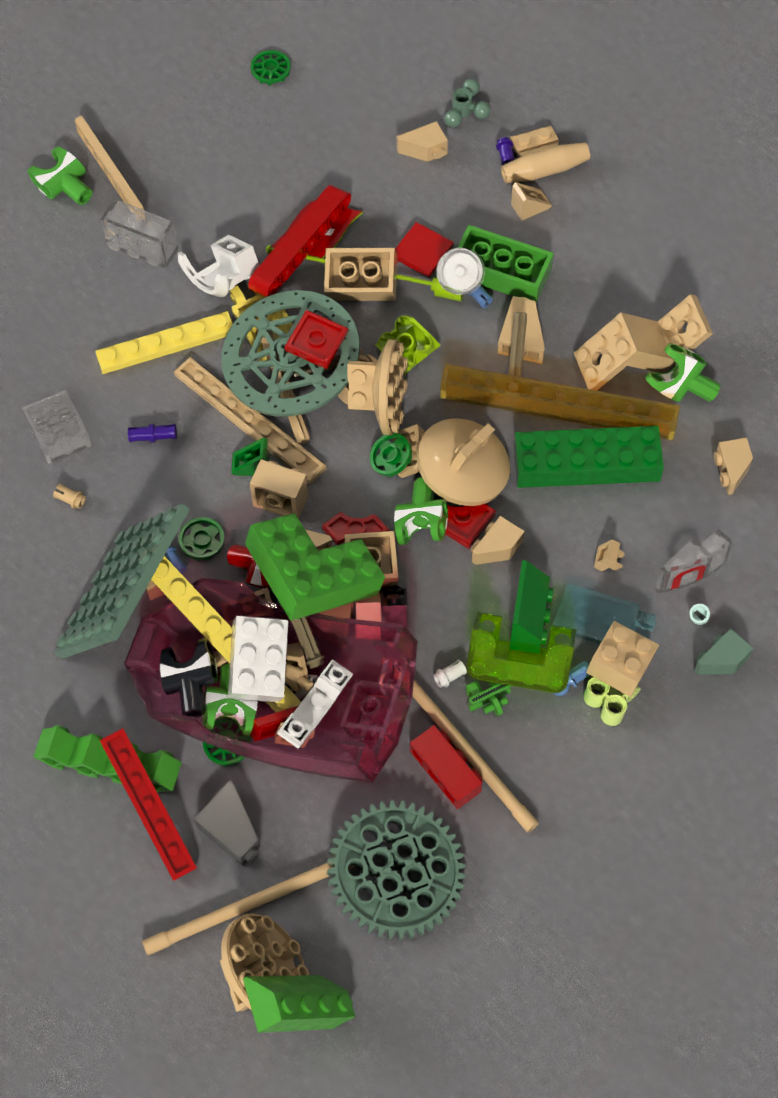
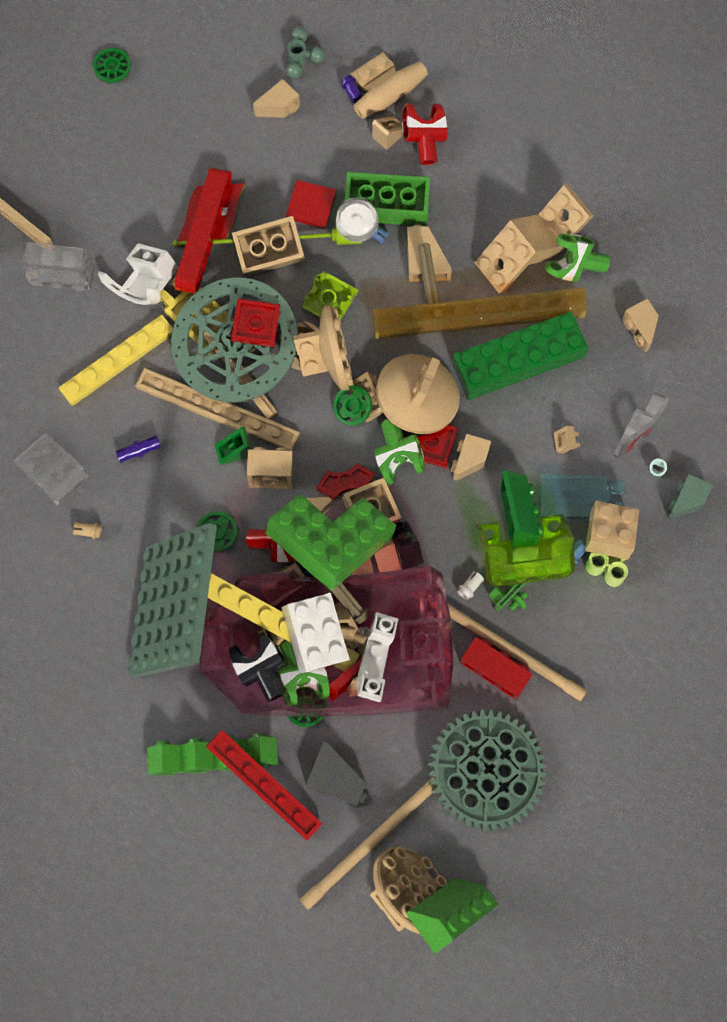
camera: 20 degrees left, 10 degrees up
(566, 211) = (424, 132): none -> red connector

